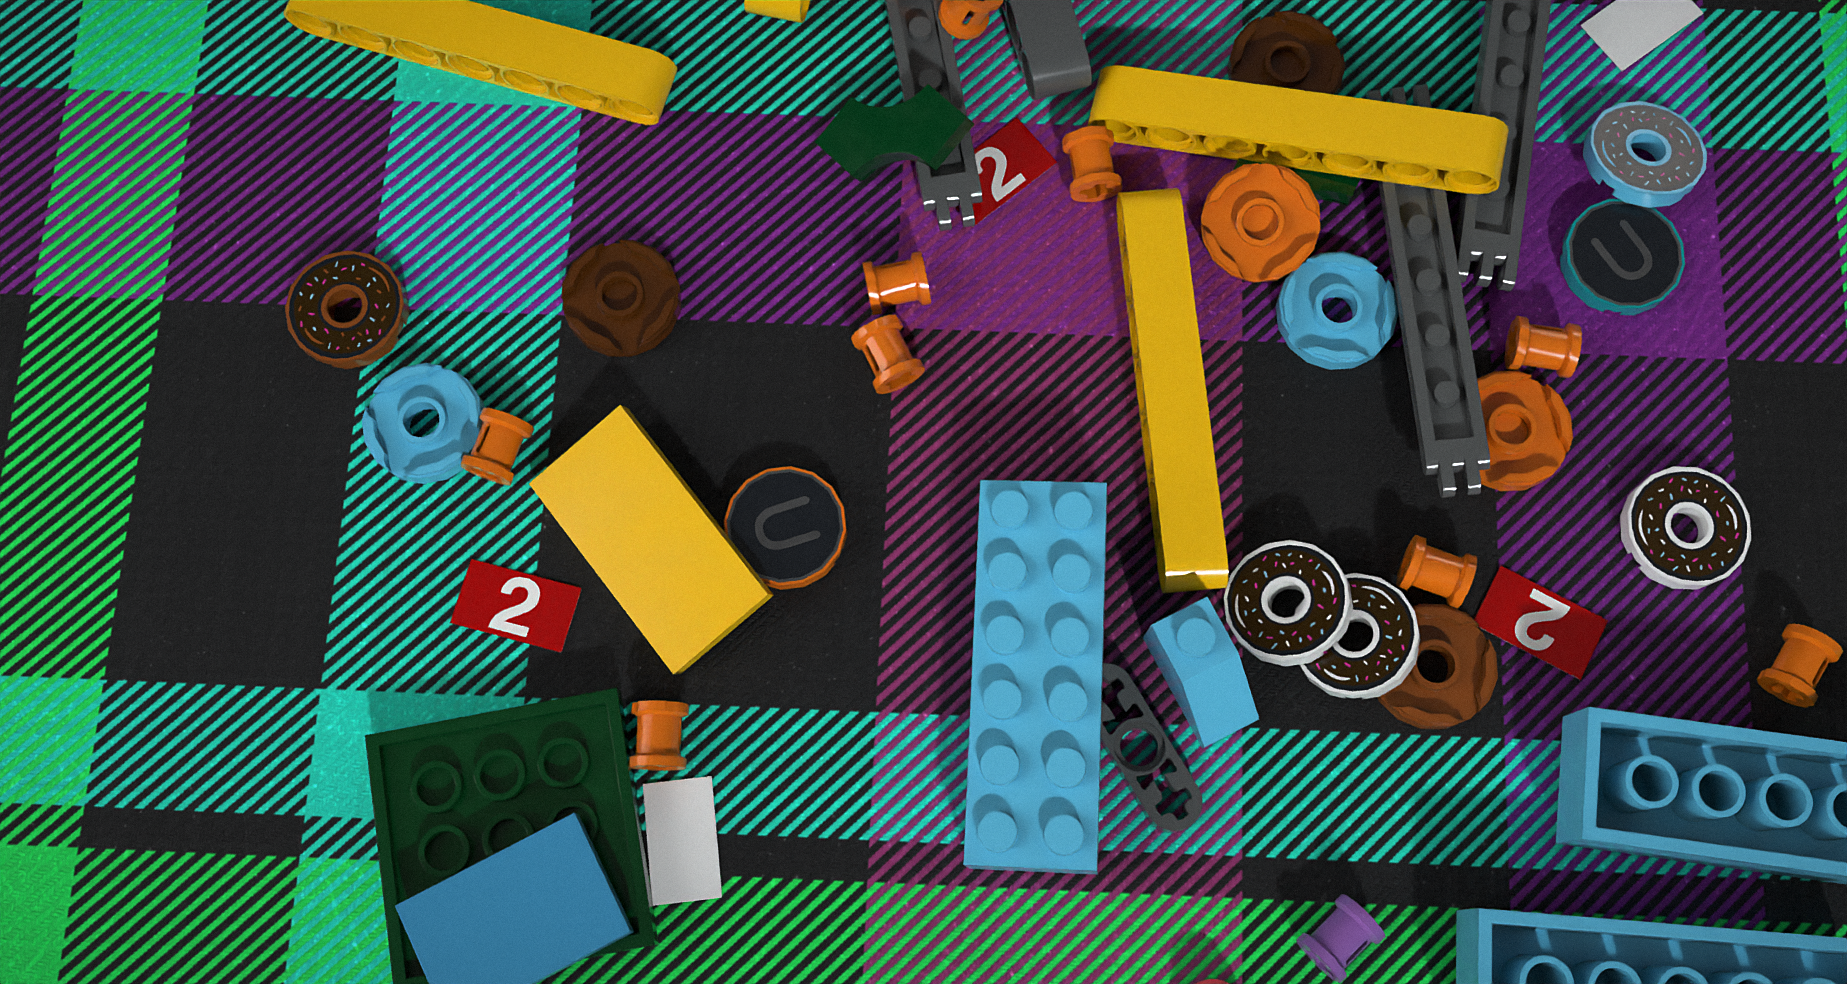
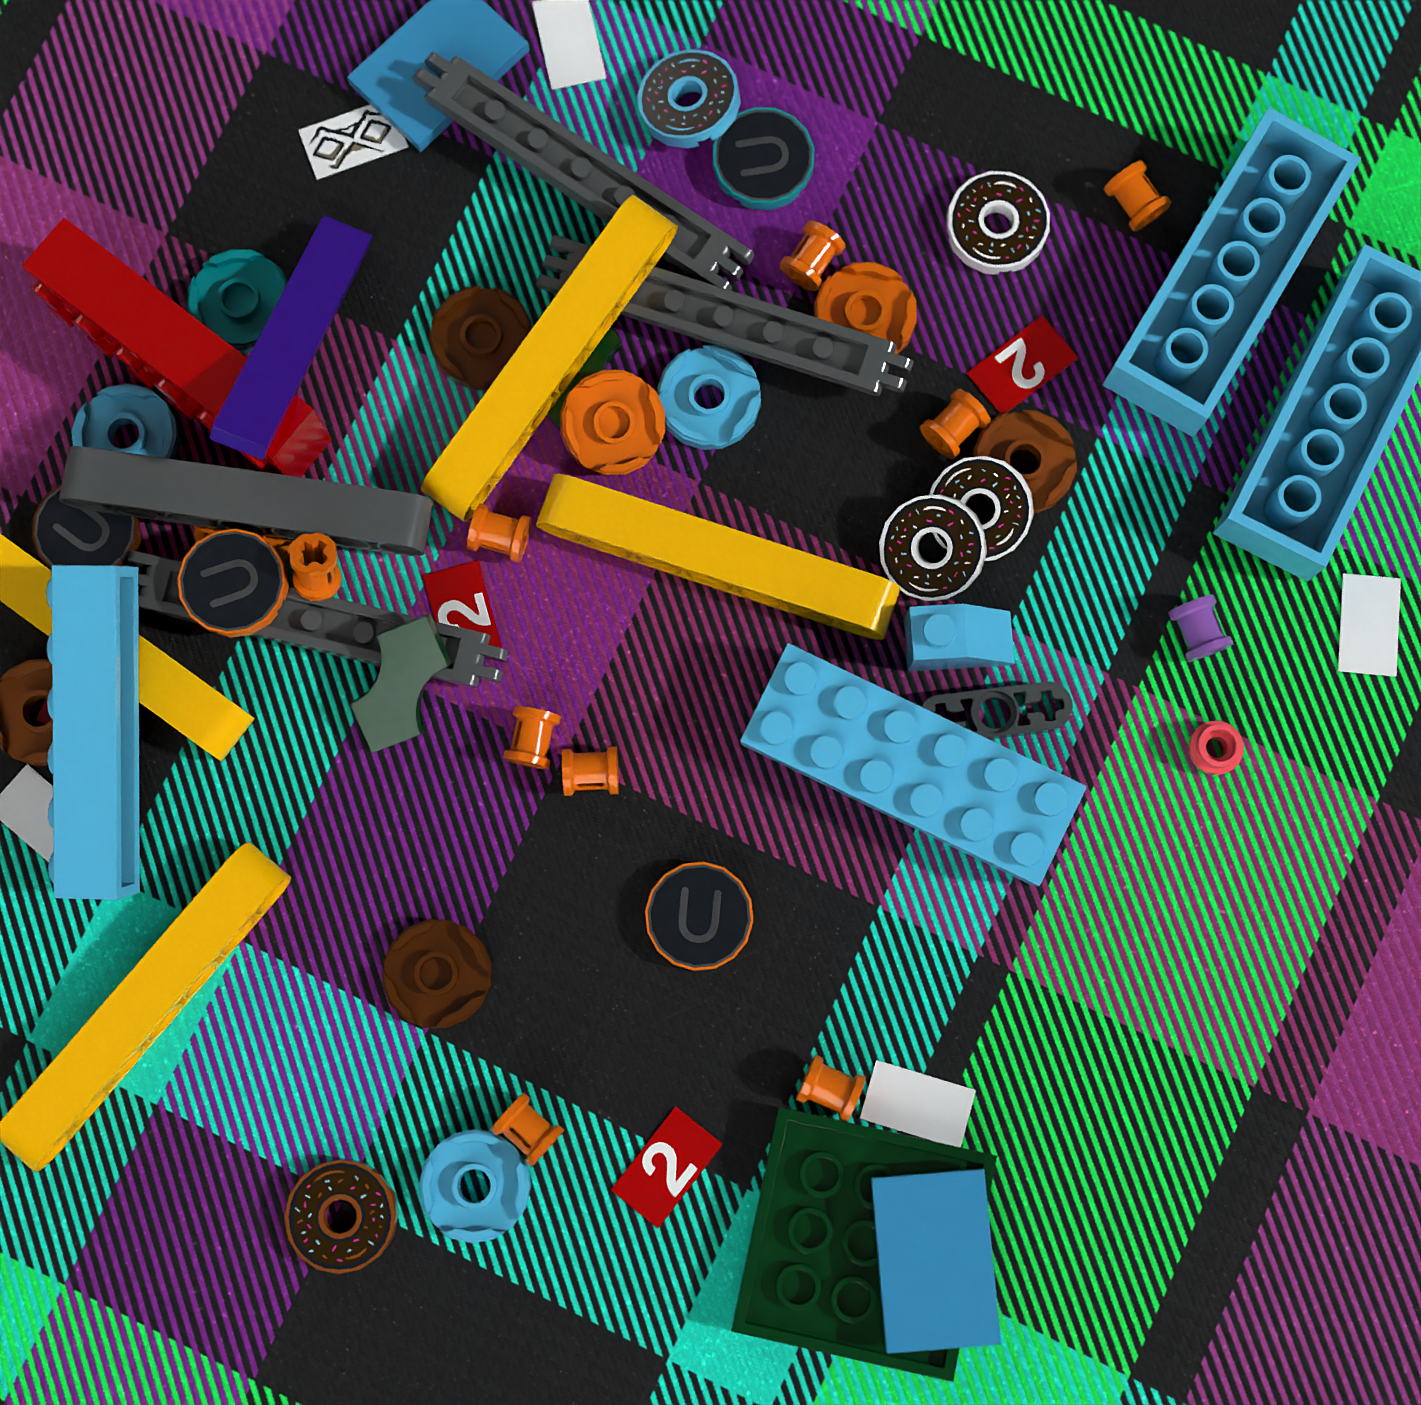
camera: 70 degrees left, 5 degrees up
(650, 540) = (663, 1031): yellow tile -> none

